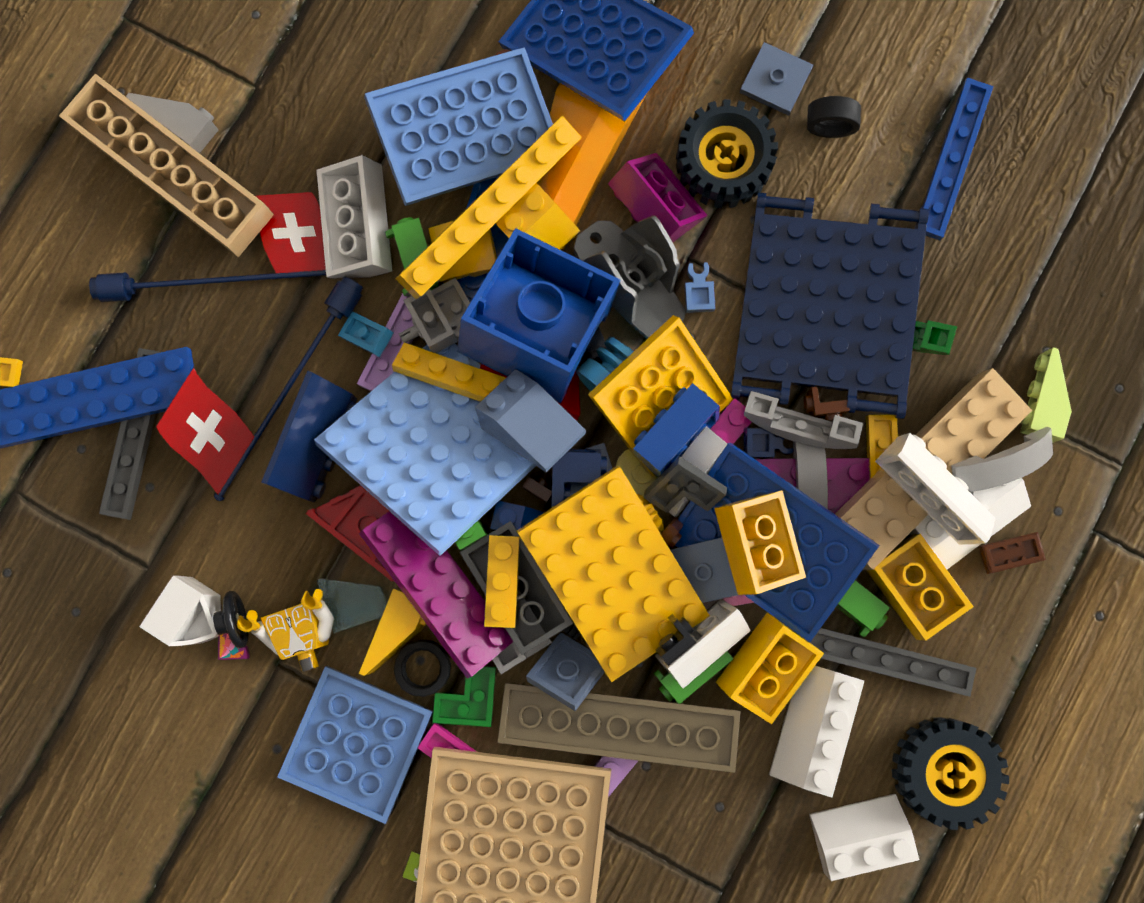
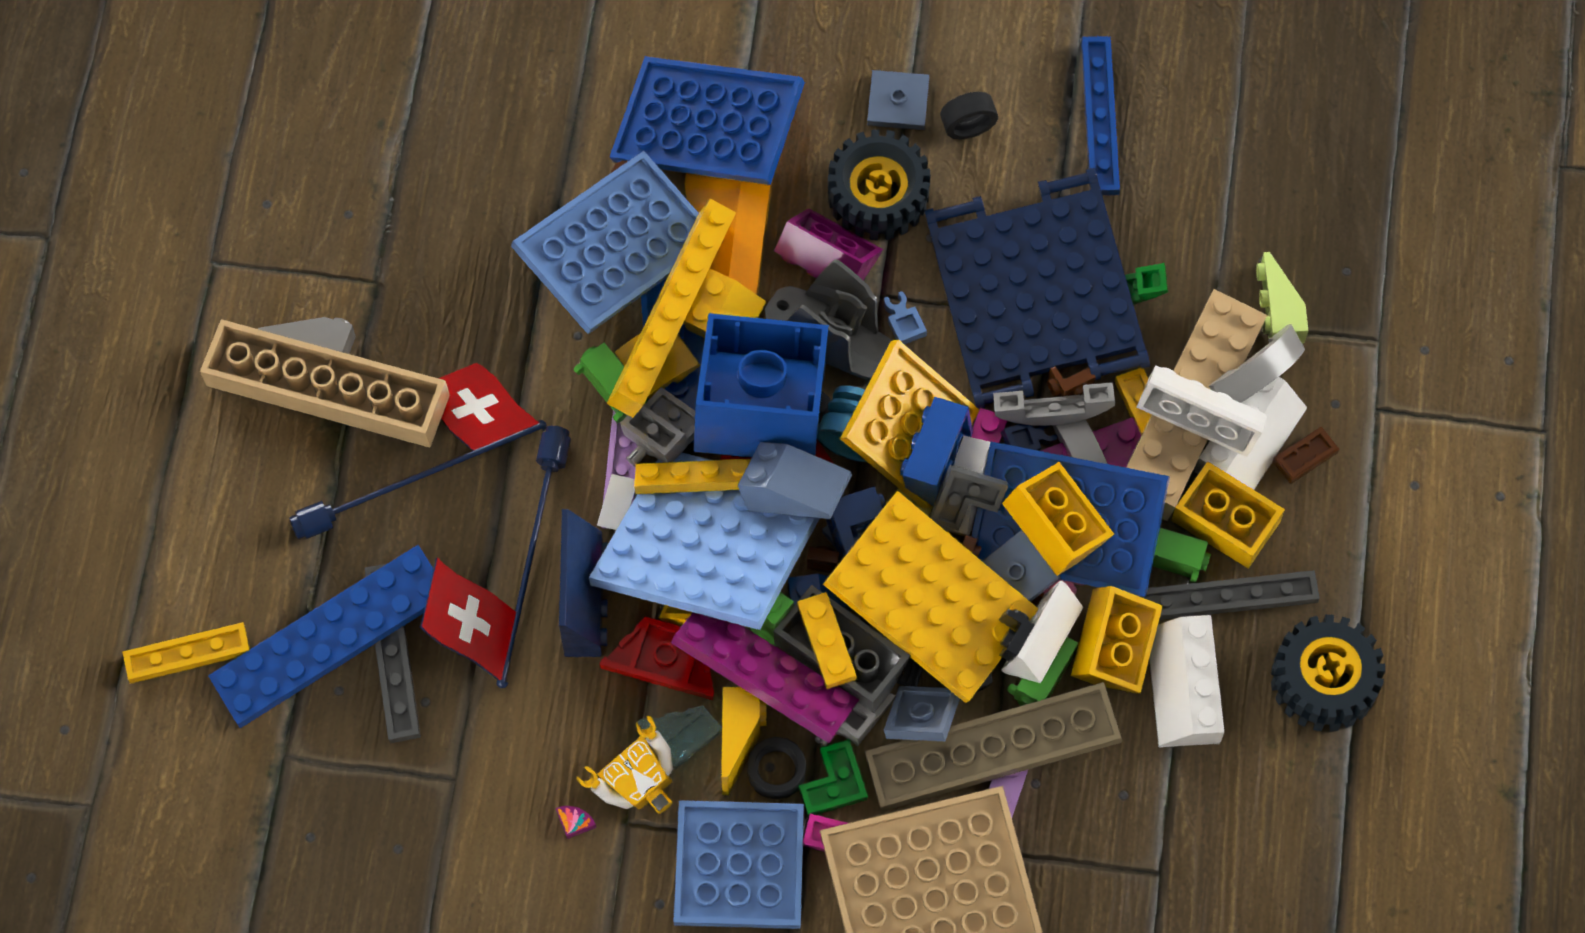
camera: 25 degrees left, 15 degrees down
(193, 615) = (526, 800): white piece -> none
(354, 219) = (534, 370): white slope -> none
(366, 334) = (591, 473): dark azure plate -> none
(376, 370) = (616, 501): none -> white sticker
(863, 837) = (1272, 766): white slope -> none

